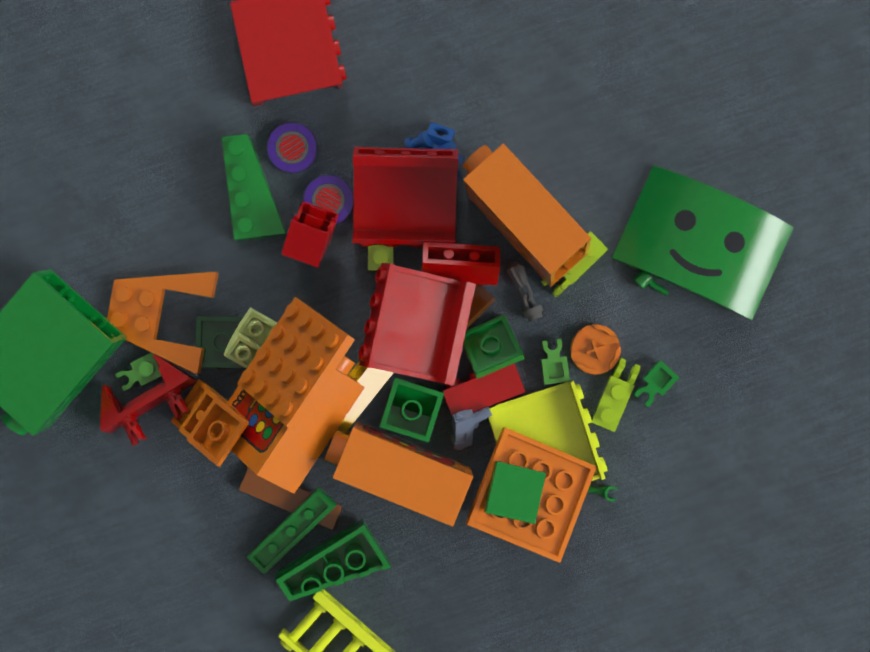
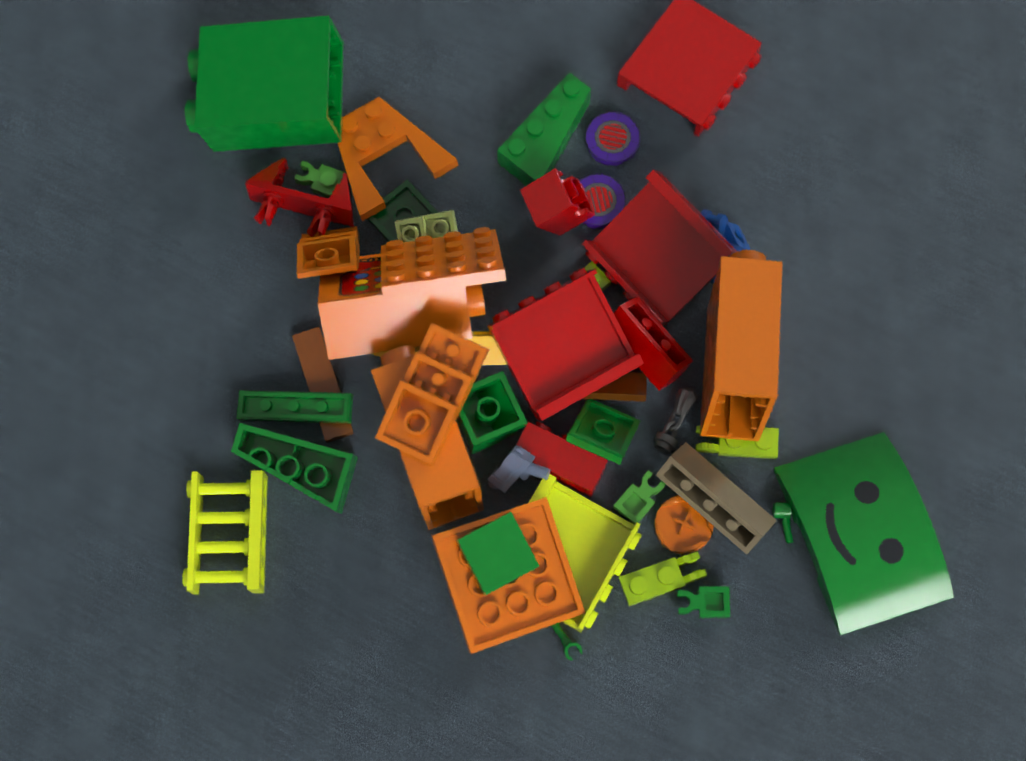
camera: 50 degrees right, 15 degrees down
(386, 453) = (432, 393): none -> orange slope
(600, 316) = (716, 497): none -> dark tan brick

